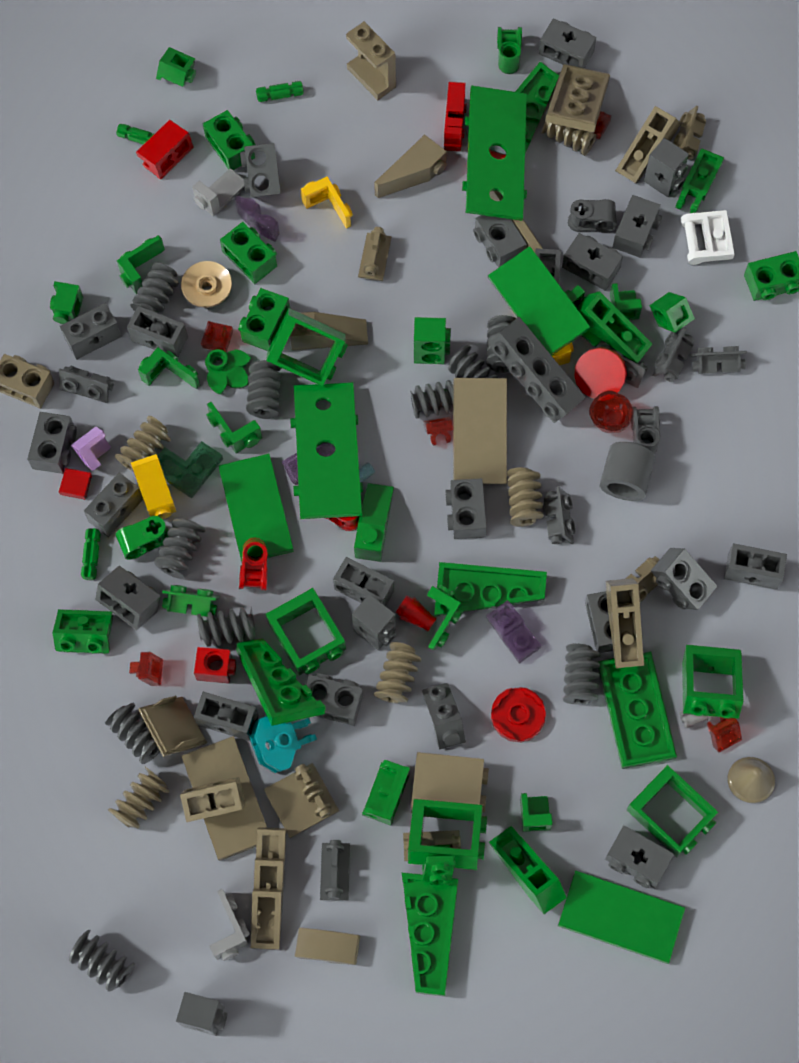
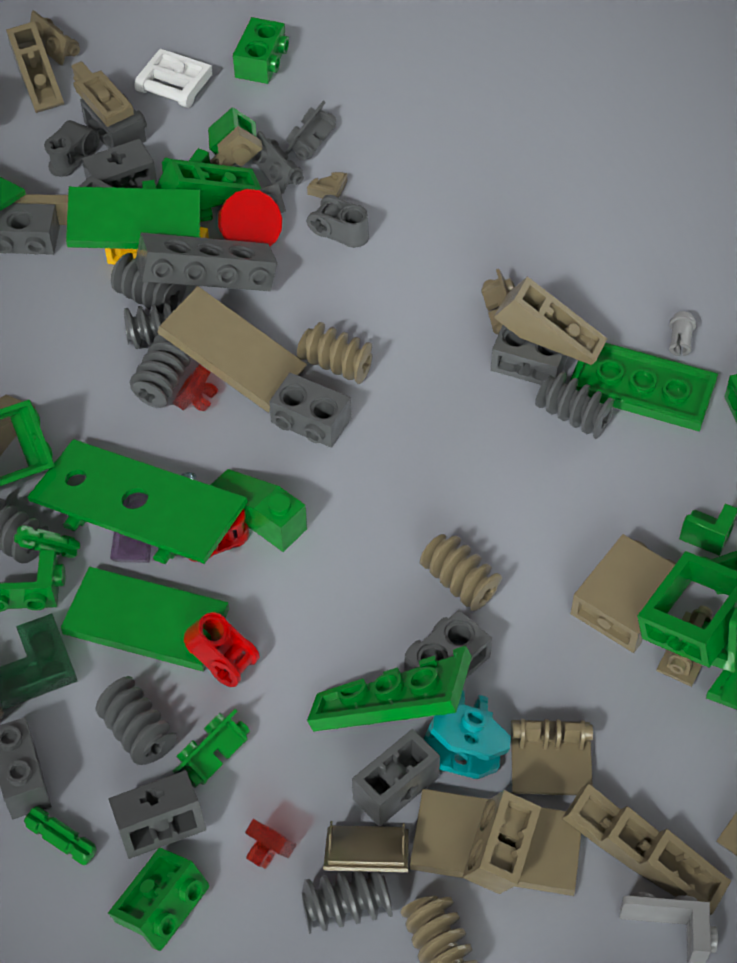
camera: 60 degrees left, 15 degrees down
(140, 537) = (87, 757): green piece -> none
(153, 487) = (41, 697): yellow slope -> none
(205, 657) = (316, 777): red brick -> none
(226, 626) = (275, 721): dark grey piece -> none
(265, 419) = (46, 540): none -> green axle
(294, 609) = (343, 668): green window -> none
(335, 871) = (663, 765): dark grey hinge -> none
(360, 581) = (330, 547): dark grey brick -> none
(374, 622) = (387, 556): dark grey brick -> none
(386, 792) = (598, 658): green hinge -> none
(415, 613) = (396, 521): red cone -> none
(431, 340) = (89, 337): green brick -> none
(444, 715) = (541, 547): dark grey bracket -> none
(445, 597) = (406, 475): green bracket -> none
(489, 586) = (409, 447): green wing -> none
(513, 631) = (480, 444): clear purple slope -> none
(518, 714) = (581, 489): red tile -> none
(559, 506) = (392, 340): dark grey hinge -> none
(613, 419) = (304, 242): clear red helmet -> none
(627, 471) = (378, 251): dark grey piece -> none
(638, 206) = (101, 95): none -> dark tan hinge
(658, 323) = (237, 148): none -> dark tan plate
(666, 167) = (70, 48): dark grey brick -> none
(678, 402) = (328, 185): none -> dark tan tile
(686, 574) = (538, 259): dark grey brick -> none
(700, 179) = (108, 54): green hinge -> none
(715, 661) = (631, 308): green window -> none
(724, 733) = (715, 320): clear red tile -> none
(755, 566) = (556, 206): dark grey brick -> none

